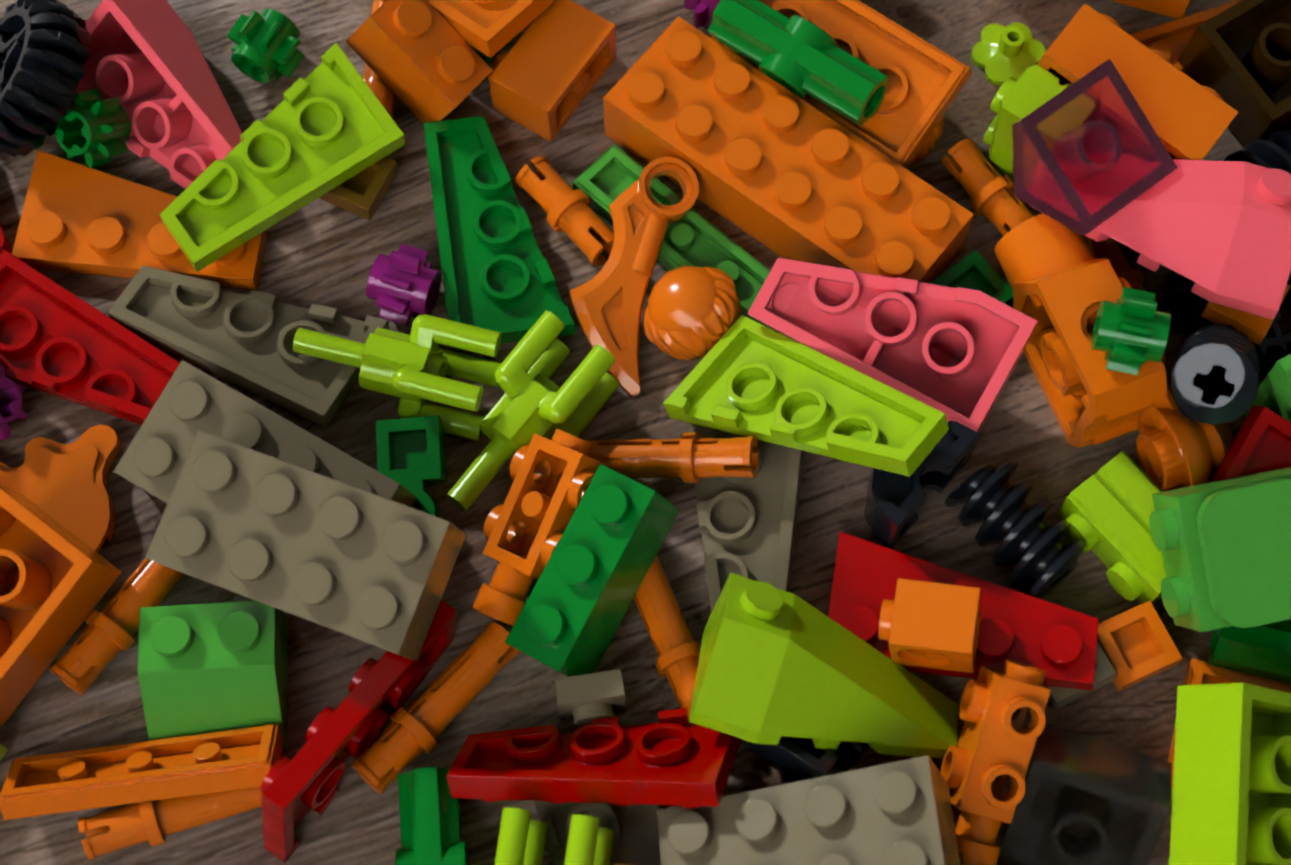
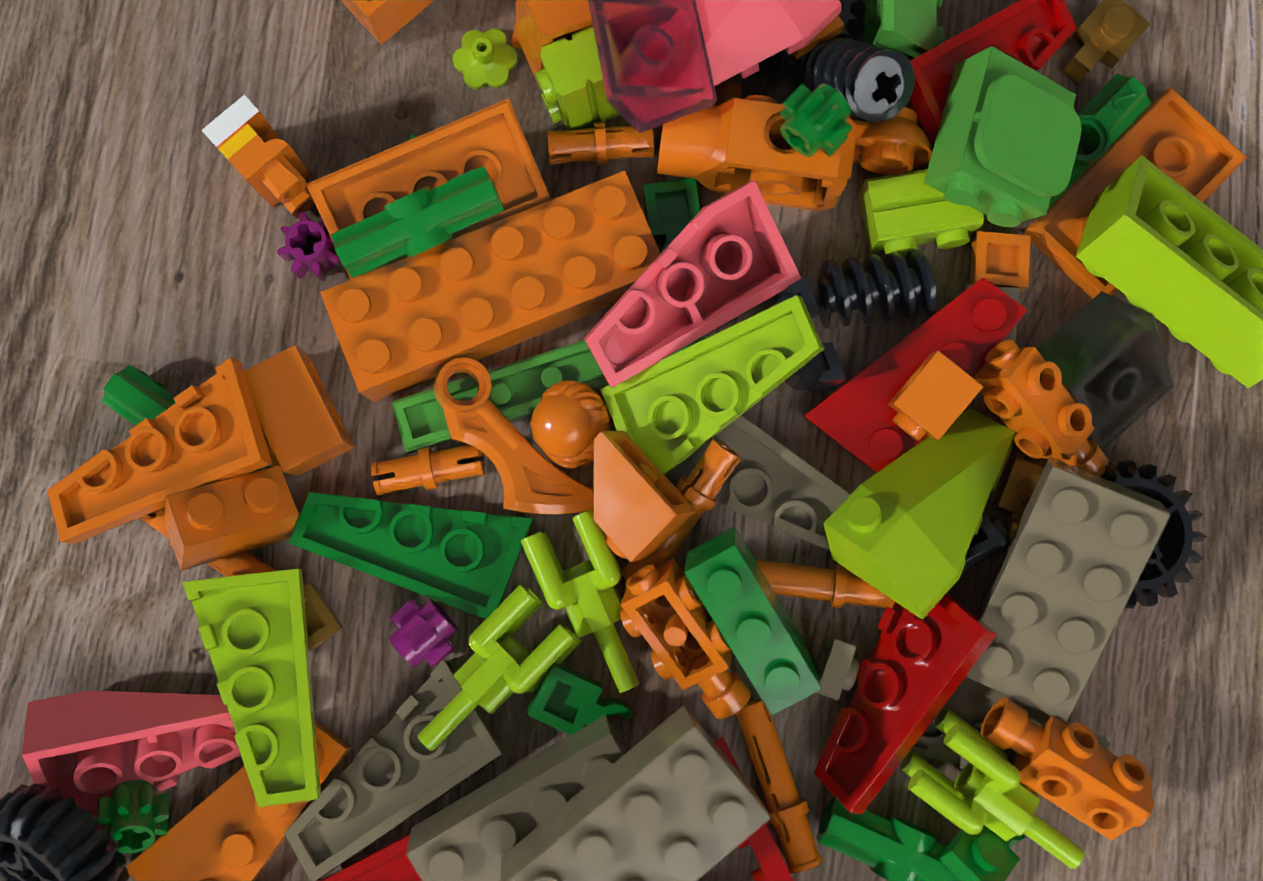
camera: 60 degrees left, 15 degrees up
(265, 45) = (138, 634): green gear -> none
(649, 390) = (634, 498): none -> orange slope

